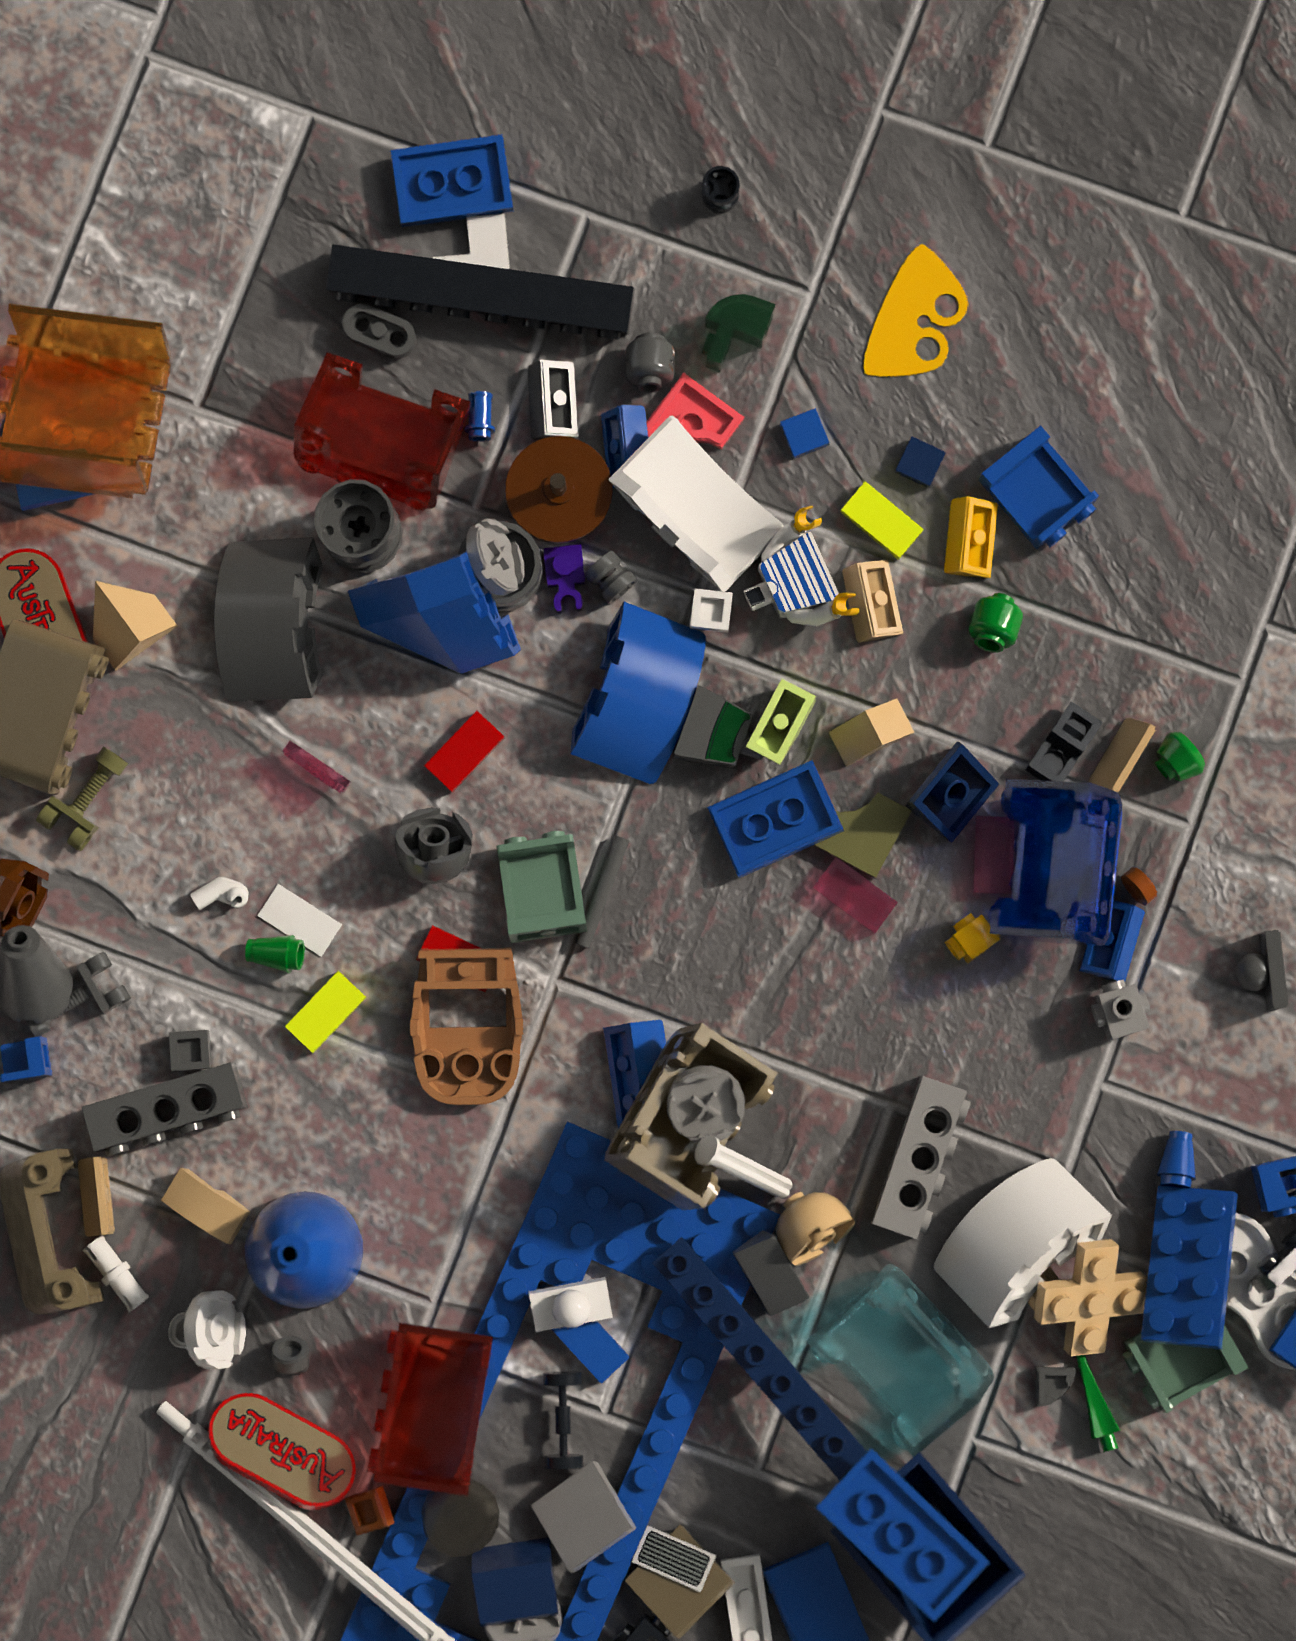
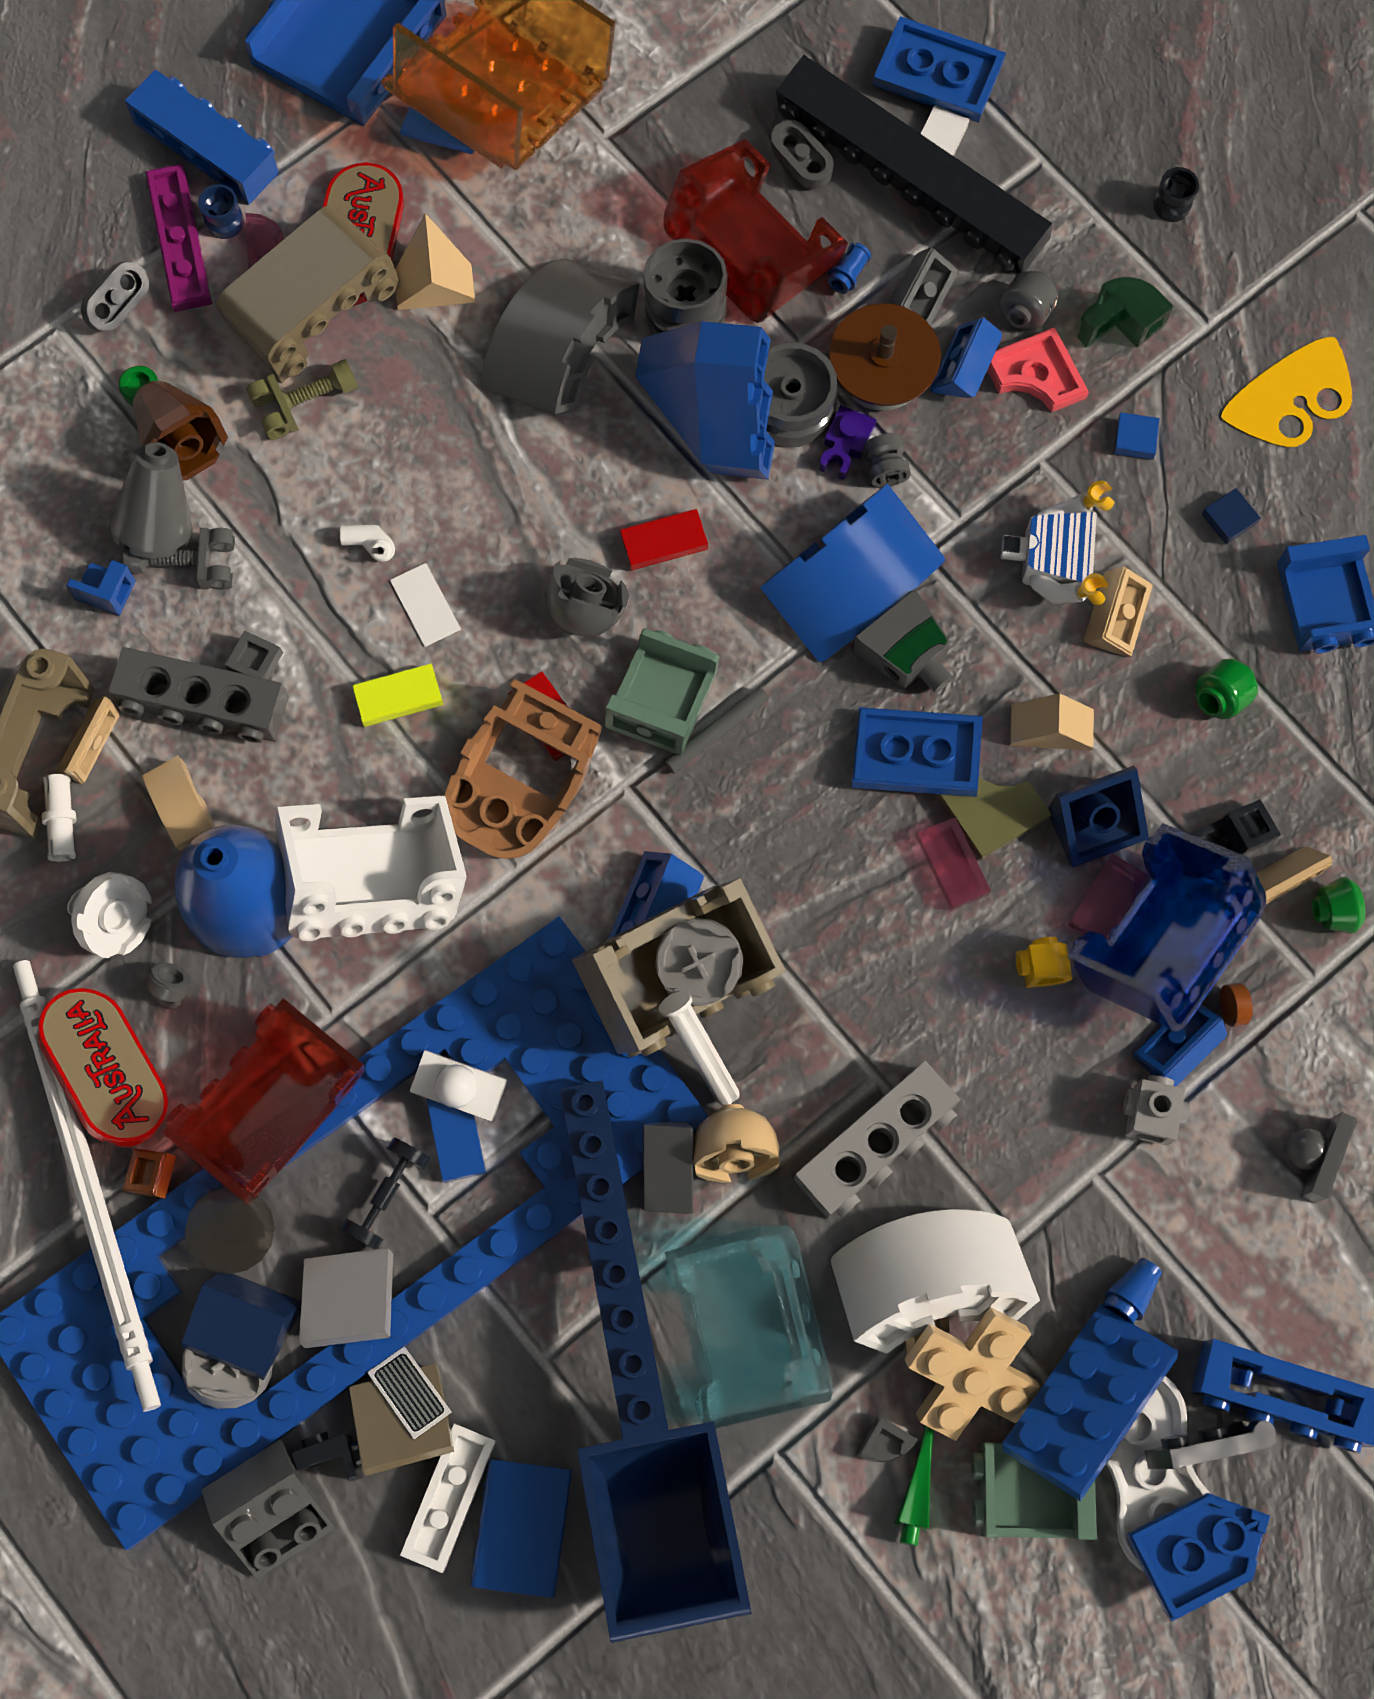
camera: 25 degrees right, 10 degrees down
(278, 952) = (386, 617): green cone -> none
(316, 767) = (523, 479): clear pink tile -> none
(399, 1175) = (370, 875): none -> white windscreen
(494, 558) = (792, 365): light grey tile -> none
(695, 504) = (1000, 436): white panel -> none
(711, 610) = (963, 534): white tile -> none
(781, 721) = (976, 662): yellowish green slope -> none
(881, 520) = (1166, 547): neon yellow tile -> none
(902, 1534) = (648, 1493): blue plate -> none
(970, 537) = (1243, 606): yellow slope -> none

